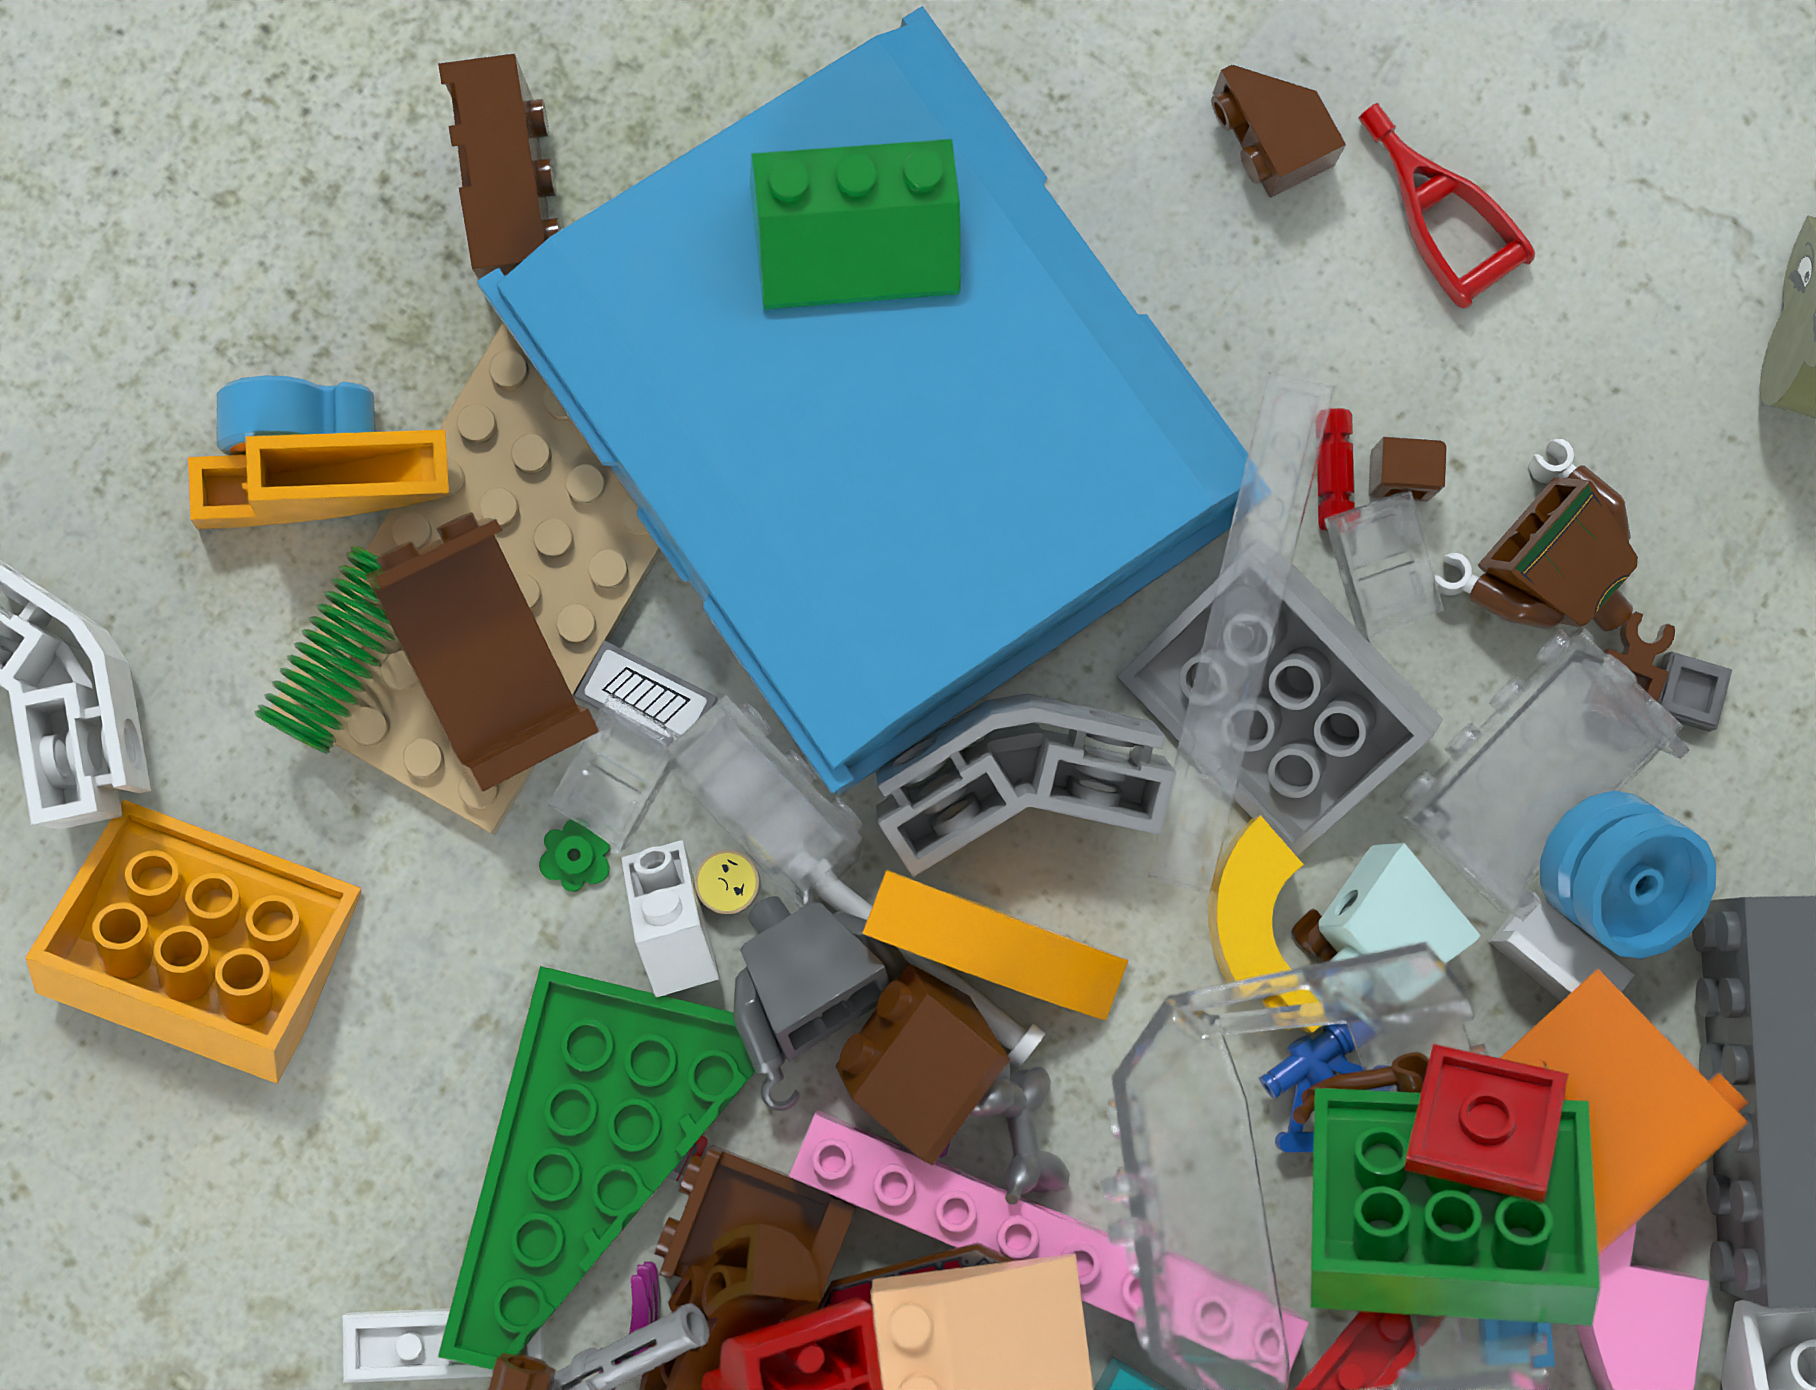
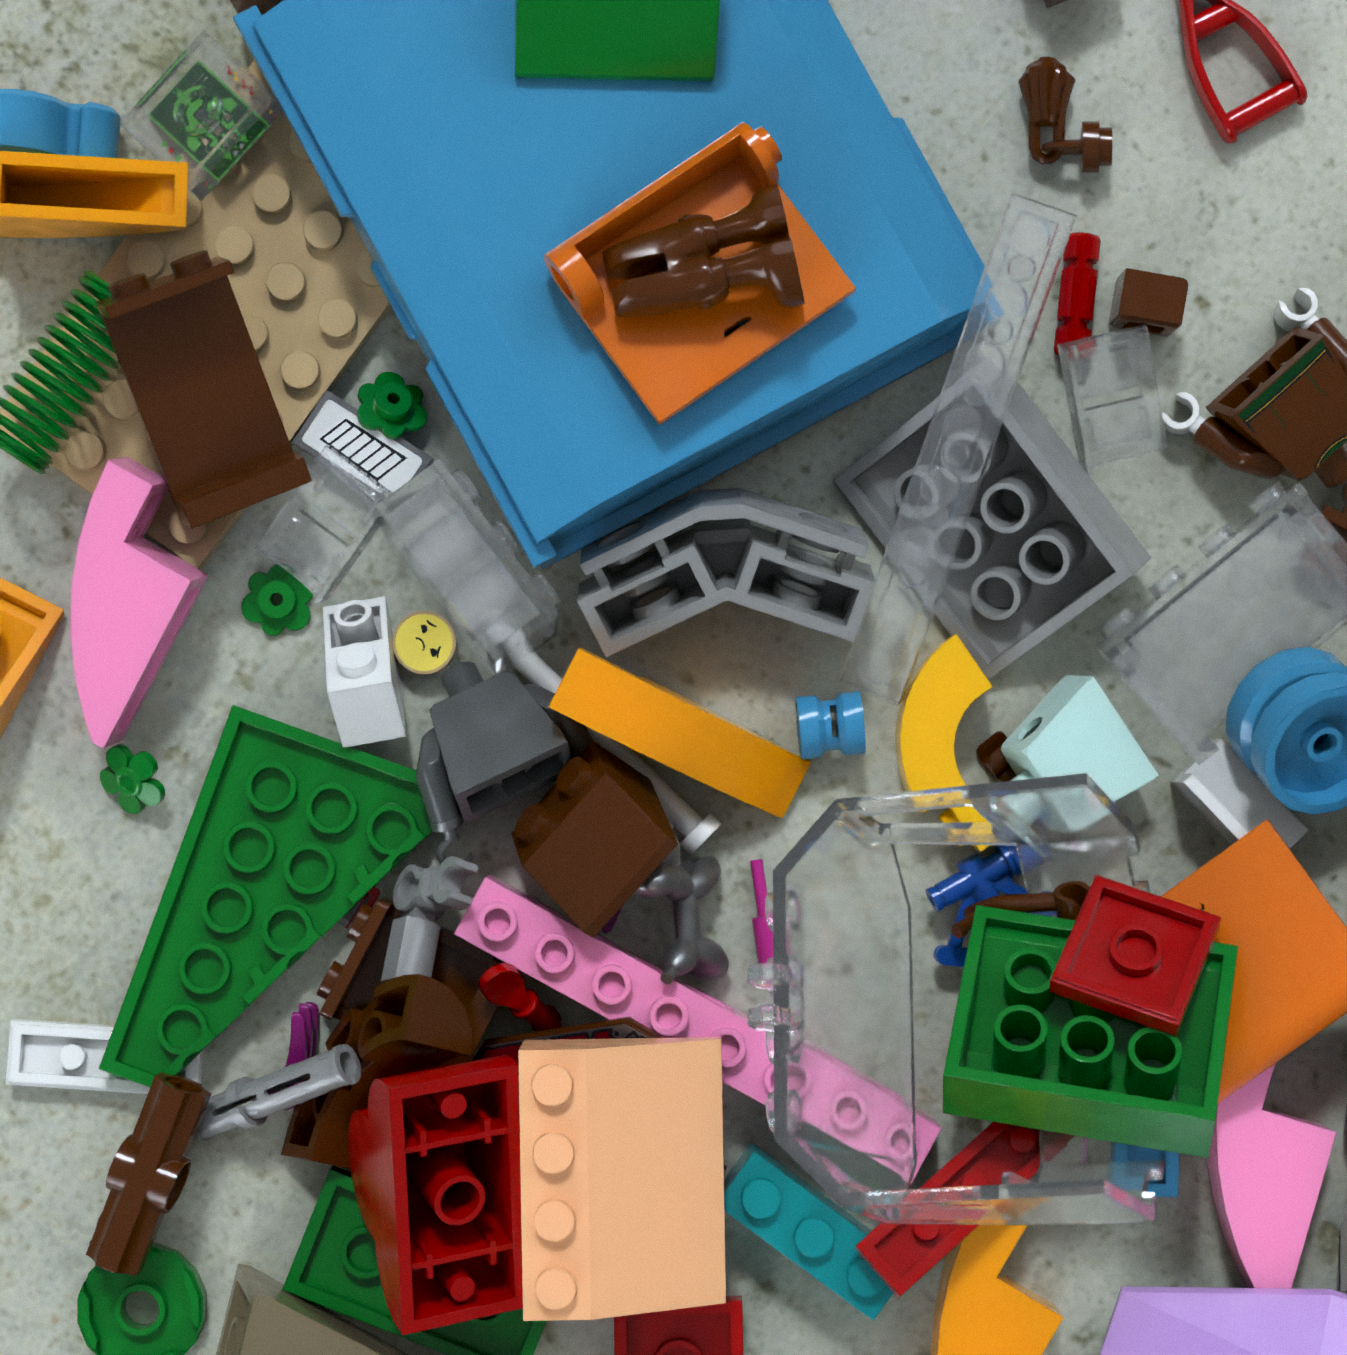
camera: 10 degrees right, 5 degrees up
(421, 871) = (124, 599): none -> bright pink slope
(445, 1052) = (132, 778): none -> green plant
(456, 381) = (203, 113): none -> clear tile
(673, 662) = (392, 419): none -> green plant
(753, 1143) = (423, 899): none -> light grey bar
(848, 1225) = (506, 987): none -> red piece
(946, 481) = (687, 273): none -> reddish brown piece
(958, 473) = (684, 352): none -> orange door
(1102, 1139) = (762, 933): none -> dark pink piece
(1129, 922) = (815, 725): none -> dark azure wheel
(1281, 278) = (1046, 94): none -> reddish brown piece

